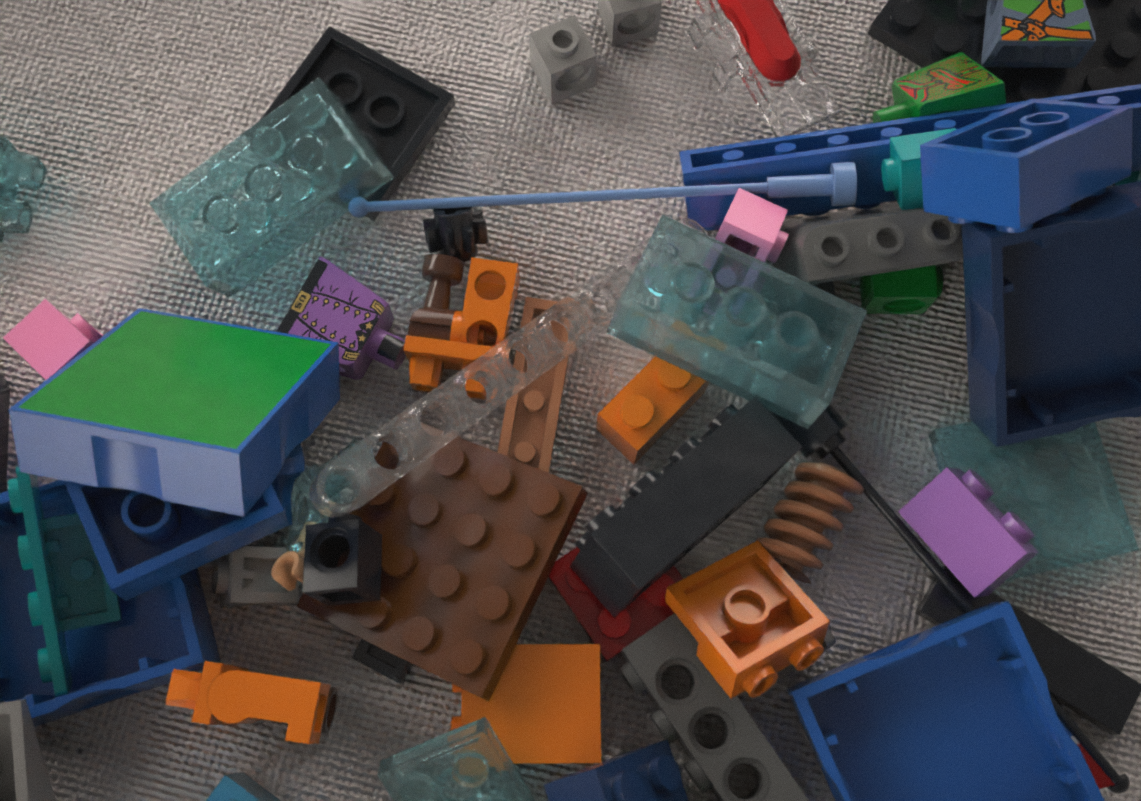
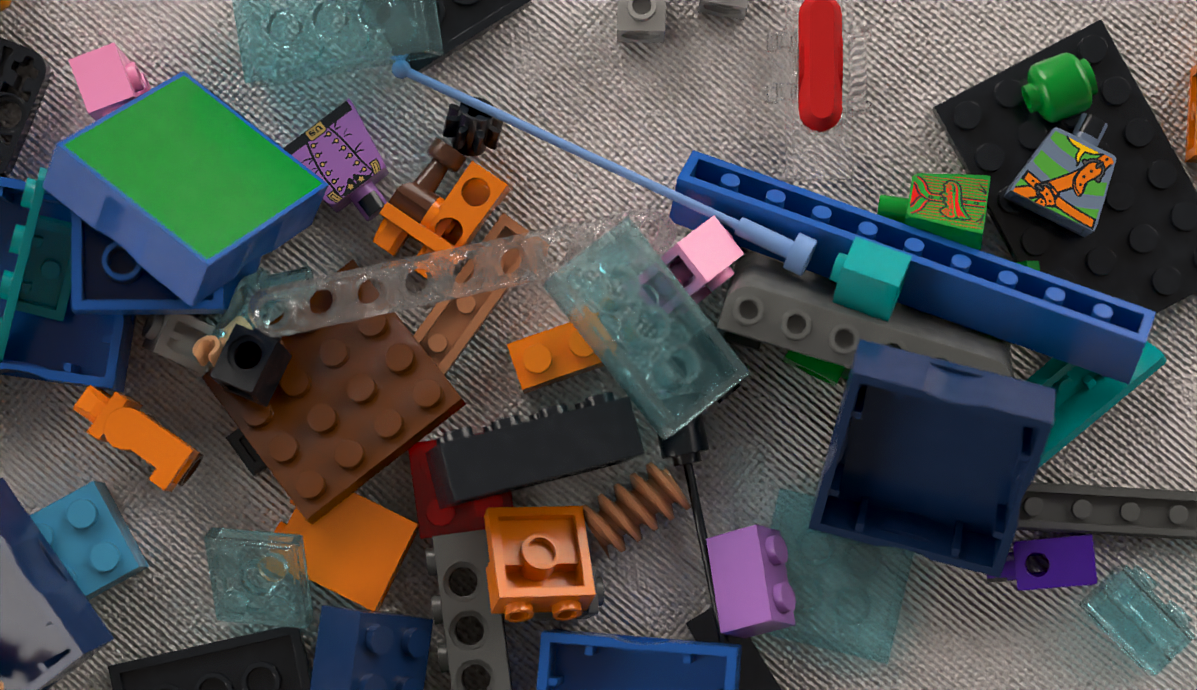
camera: 30 degrees right, 10 degrees up
(1026, 162) = (926, 322): blue brick -> none

